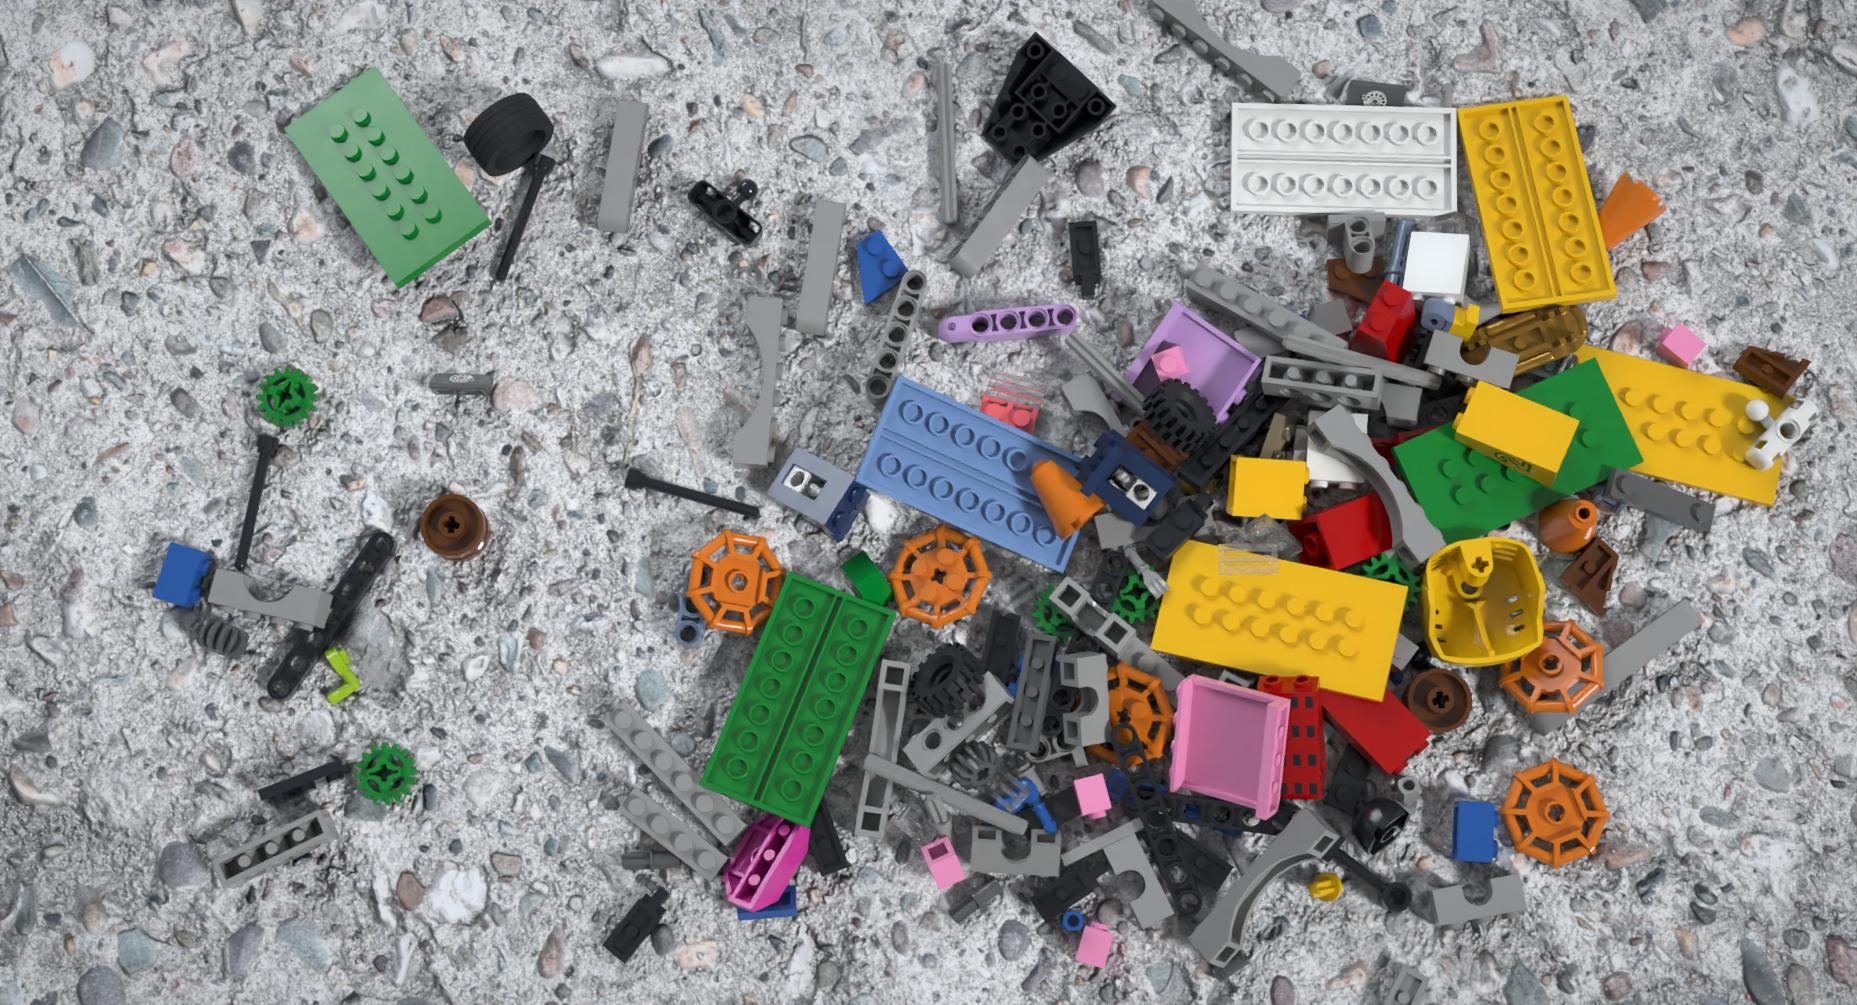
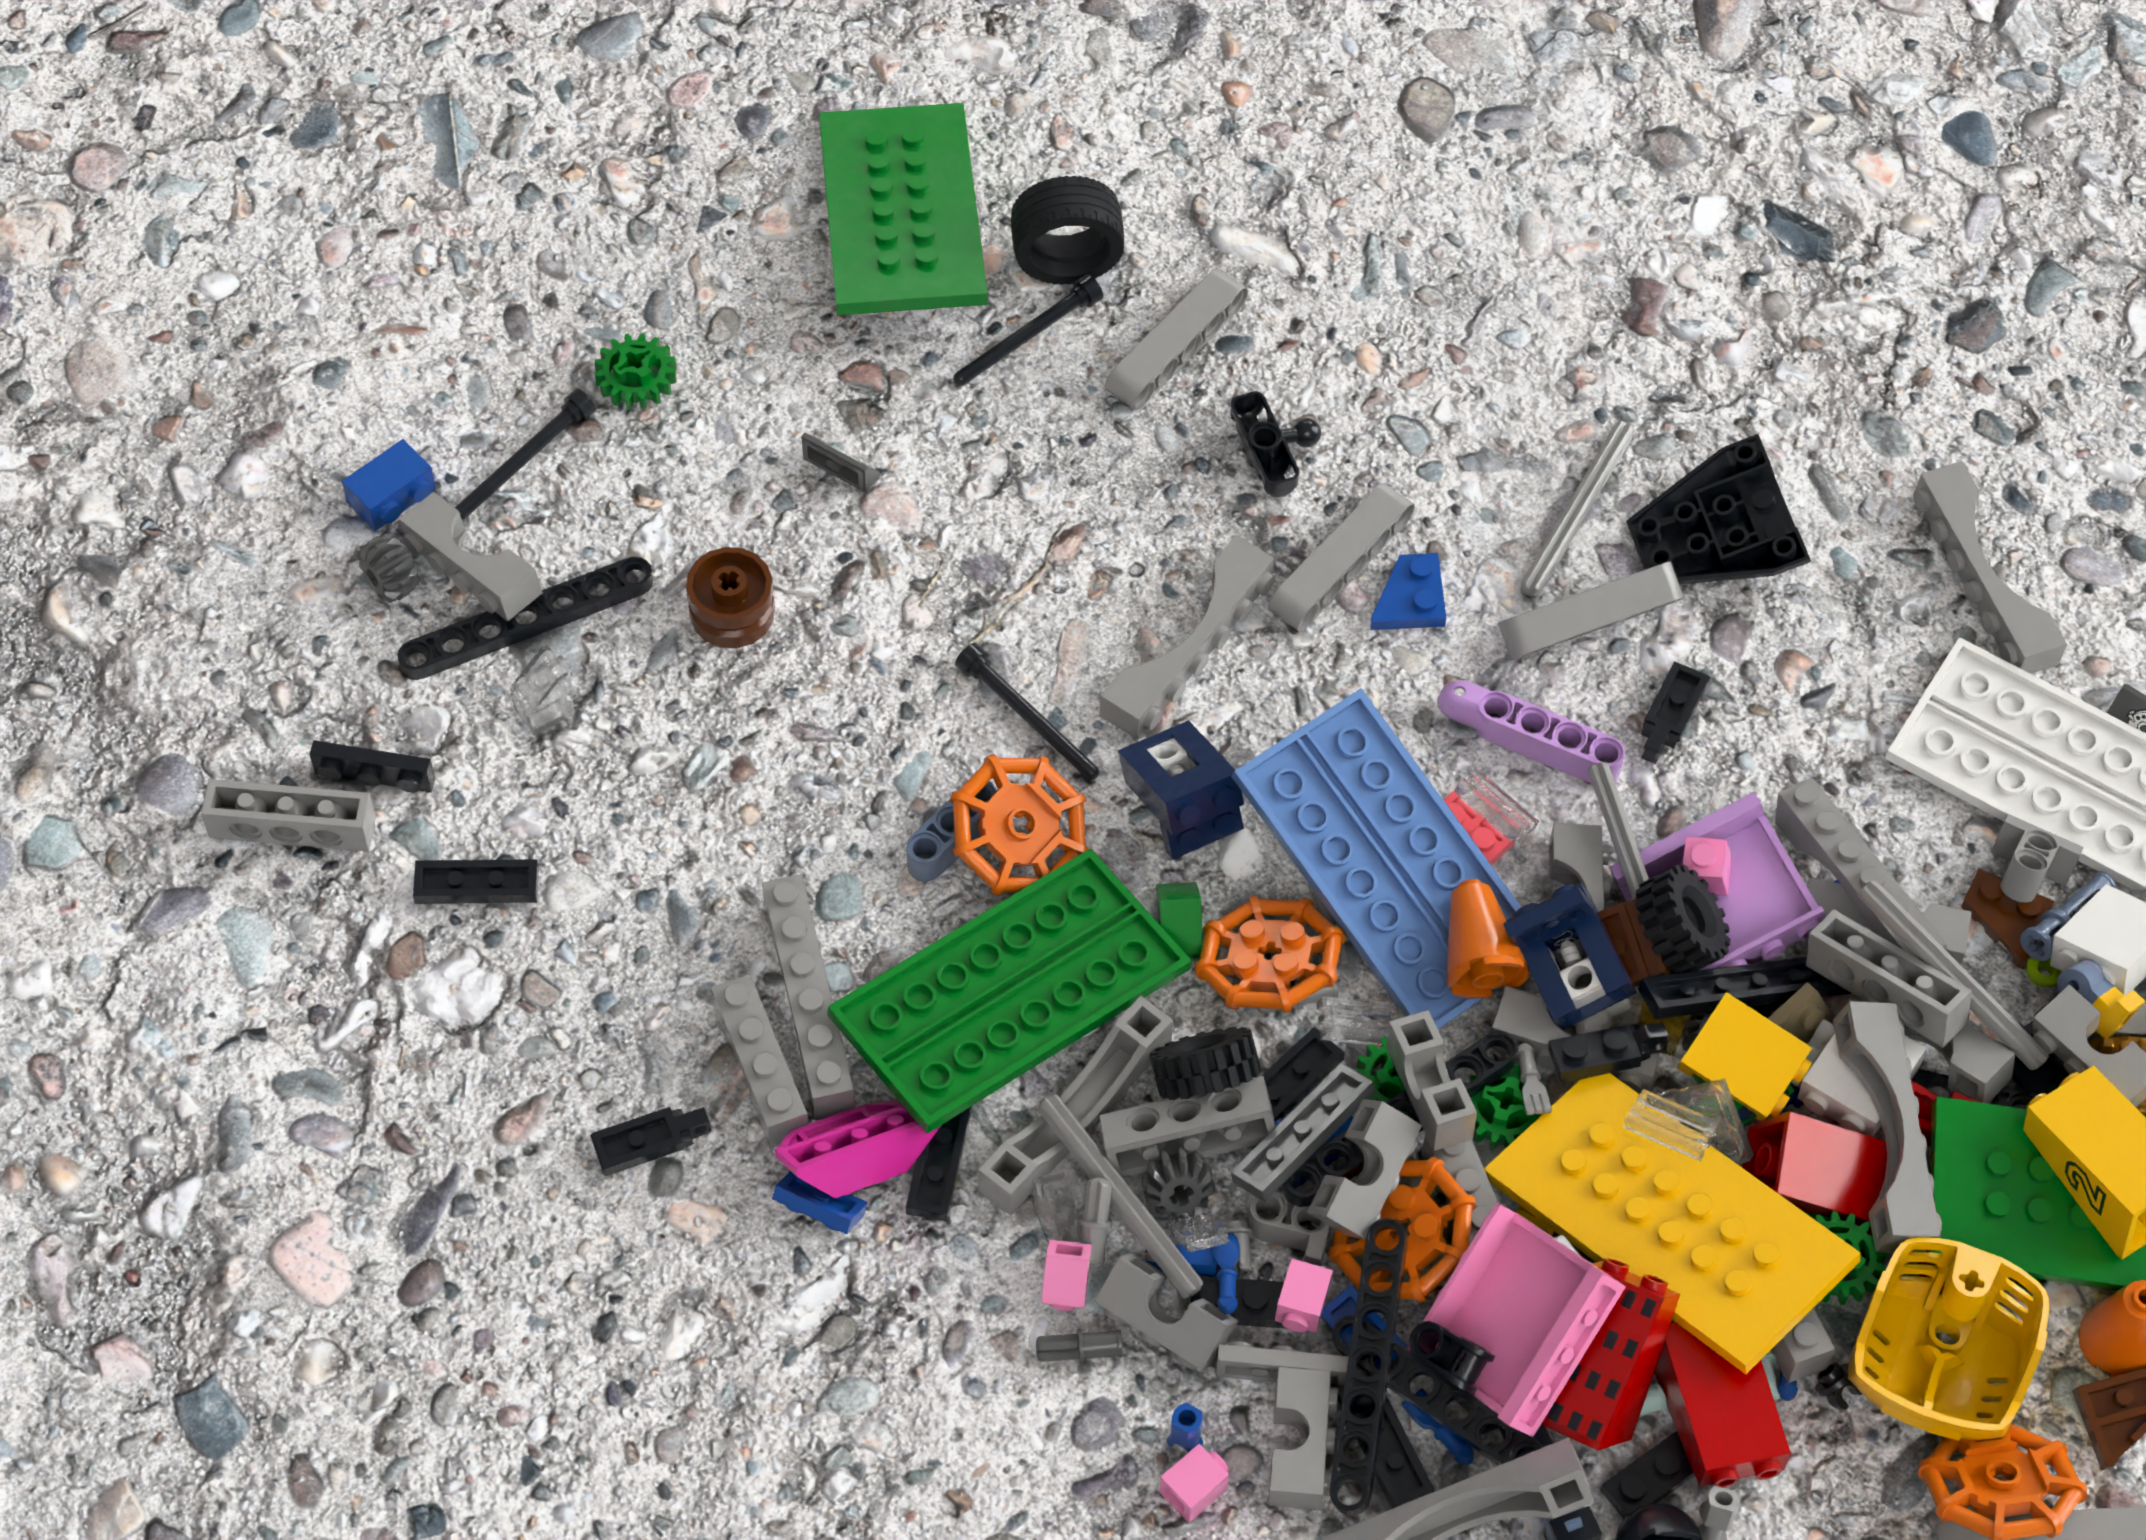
camera: 25 degrees right, 20 degrees down
(339, 660) = (502, 665): lime plate -> none
(388, 785) = (470, 810): green gear -> none
(421, 818) = (475, 881): none -> black plate
(650, 860) = (712, 1078): dark grey axle -> none
(896, 323) = (1397, 661): light grey beam -> none
(1067, 890) = (1217, 1396): black hinge -> none
(1207, 786) = (1455, 1356): none -> black piece
(1387, 325) = (2012, 953): red slope -> none
(1453, 699) = (1827, 1441): reddish brown wheel -> none

